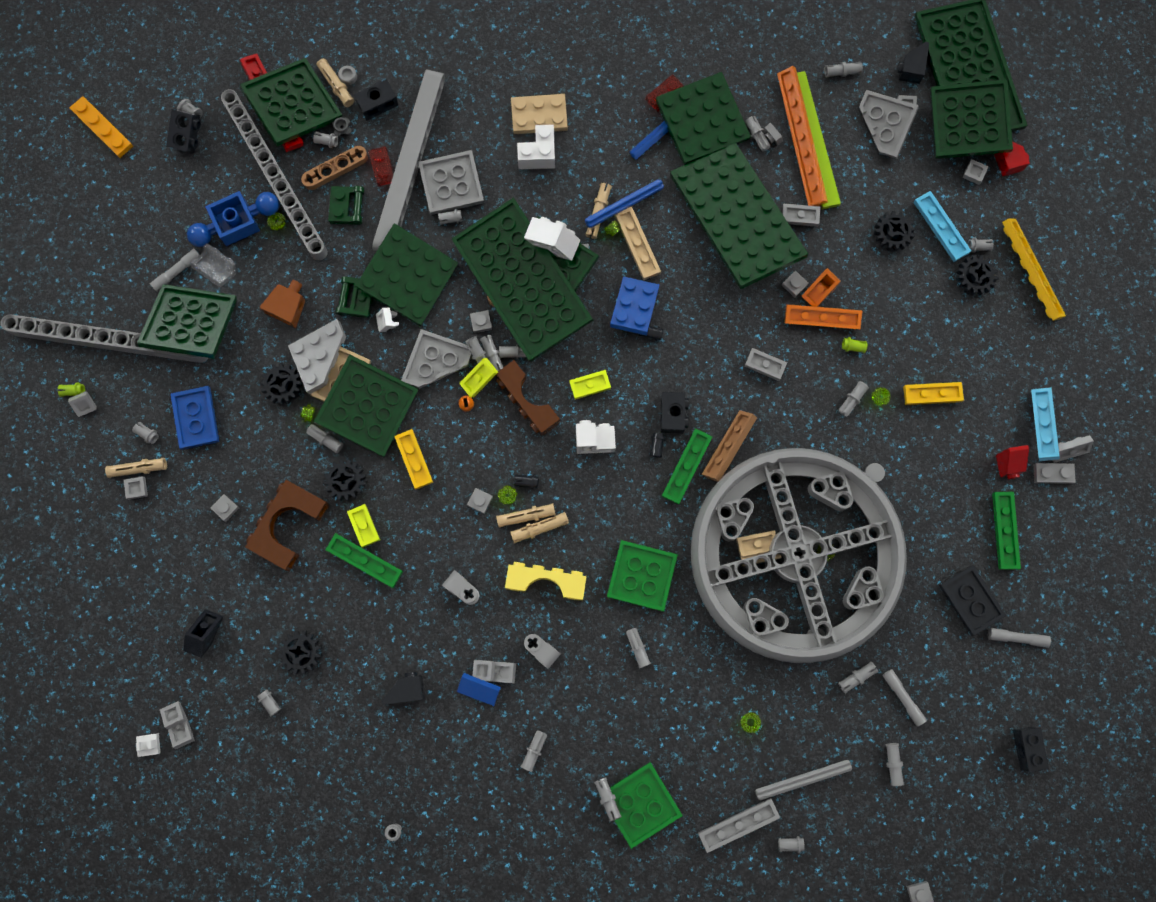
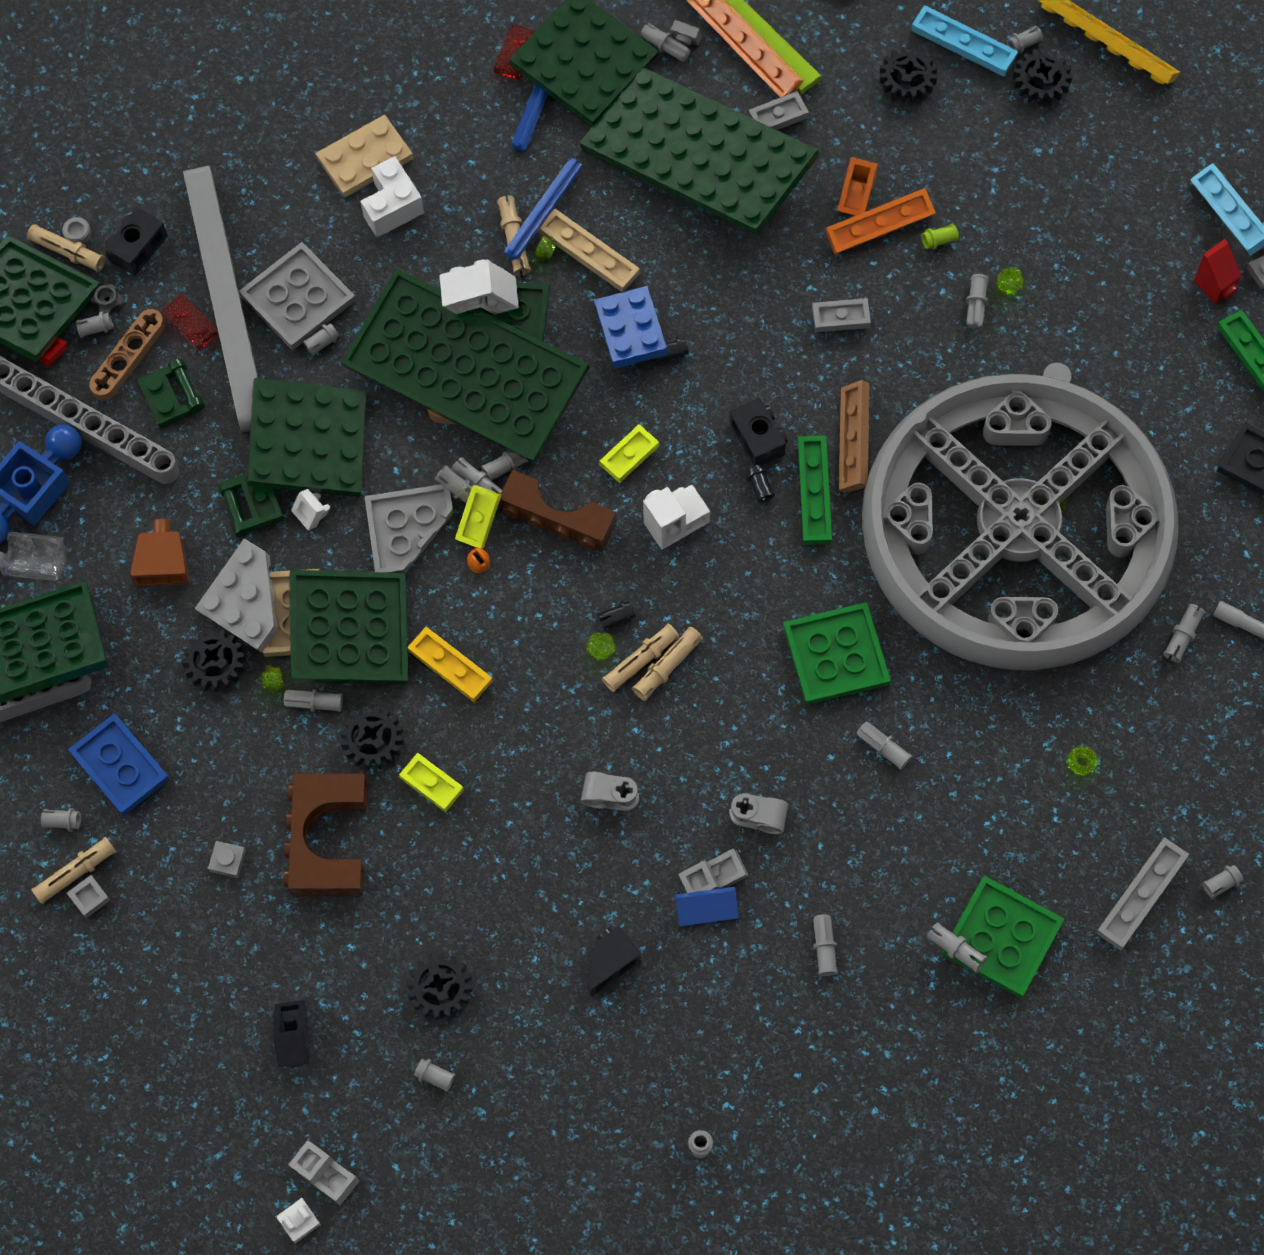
camera: 25 degrees left, 10 degrees down
(272, 218) = (83, 454): clear neon green plate -> none
(364, 560) = (458, 826): green plate -> none
(480, 500) = (568, 672): light grey plate -> none
(481, 321) = (438, 449): light grey plate -> none
(521, 577) = (750, 712): light yellow arch -> none
(755, 545) = (958, 538): tan plate -> none
(795, 284) = (820, 201): light grey plate -> none
(803, 779) = (1190, 795): light grey axle -> none
(933, 393) = (1072, 244): yellow plate -> none

